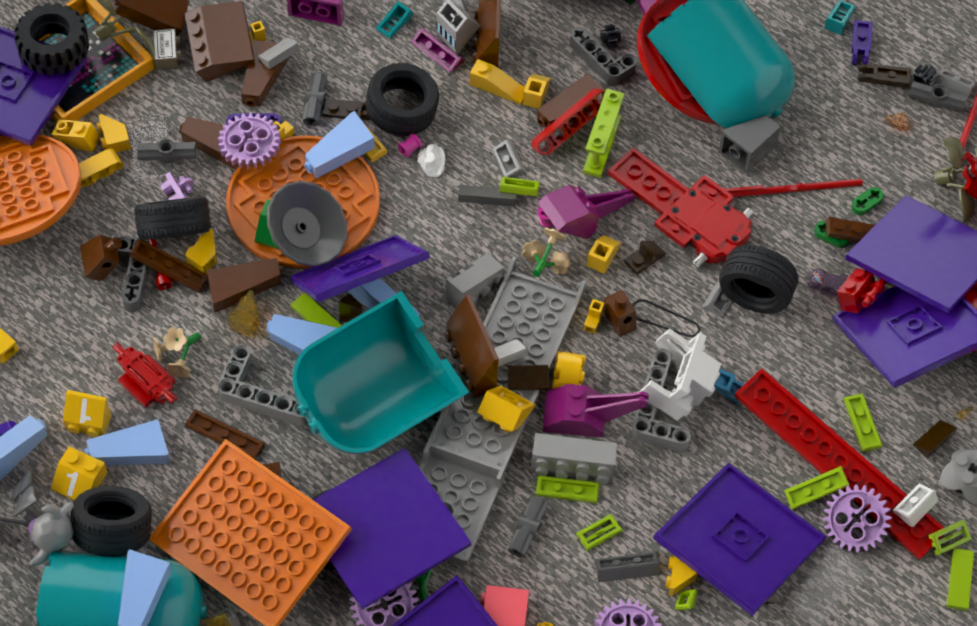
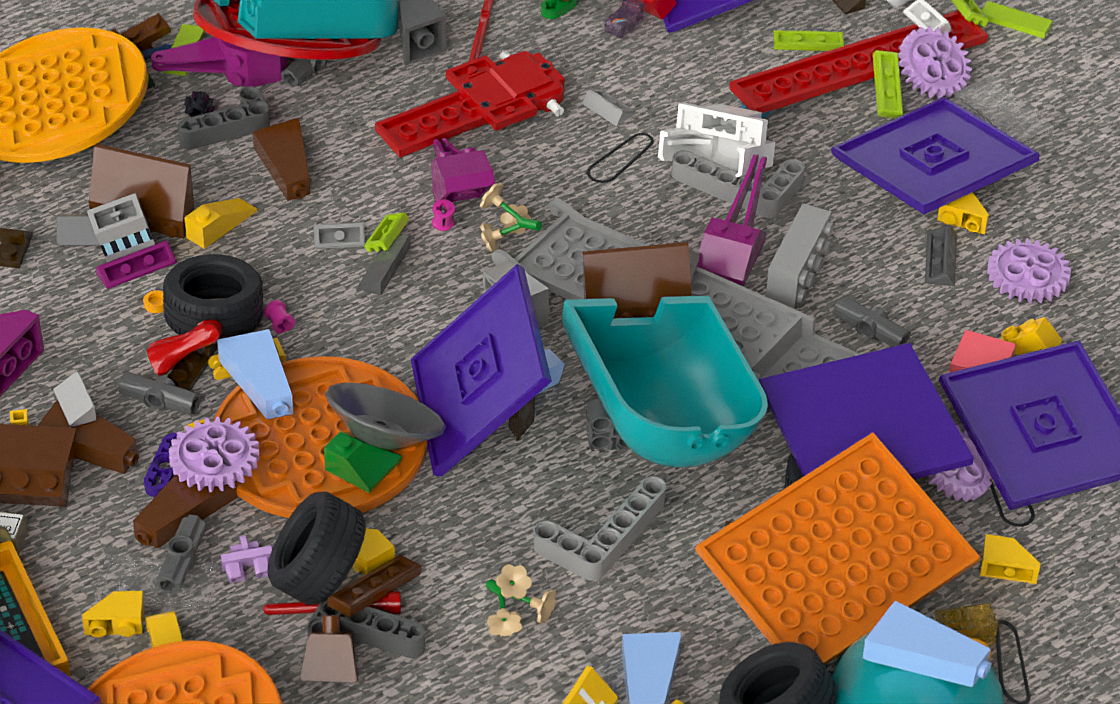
camera: 75 degrees left, 15 degrees down
(76, 134) = (99, 652): yellow slope -> none
(144, 377) = (549, 641): red piece -> none
(219, 431) = (655, 583): reddish brown tile -> none
(234, 281) = (427, 520): reddish brown slope -> none
(246, 316) = (482, 521): clear yellow slope -> none
(295, 333) = (544, 467): light blue slope -> none
(312, 312) = (507, 458): lime tile -> none
(347, 92) = (169, 351): none -> red piece
(398, 7) = (62, 278): teal slope -> none
(432, 160) = (309, 301): white hat -> none
(505, 408) = (728, 286): yellow slope -> none
(535, 90) = (252, 184): yellow slope -> none
(561, 123) = (320, 158): red beam -> none
(567, 489) = (827, 284): lime tile -> none
(568, 369) = (679, 227): yellow brick -> none
(584, 541) = (907, 281): lime tile -> none
(594, 316) = (600, 207): yellow piece -> none
(602, 253) = (520, 179): yellow slope -> none
(603, 133) = (345, 148): lime fence -> none
(619, 309) = (606, 180): reddish brown torso -> none
(644, 257) = (531, 152): dark brown slope -> none
(691, 603) = (1000, 214): lime slope -> none
(758, 279) = (619, 49): black tyre -> none

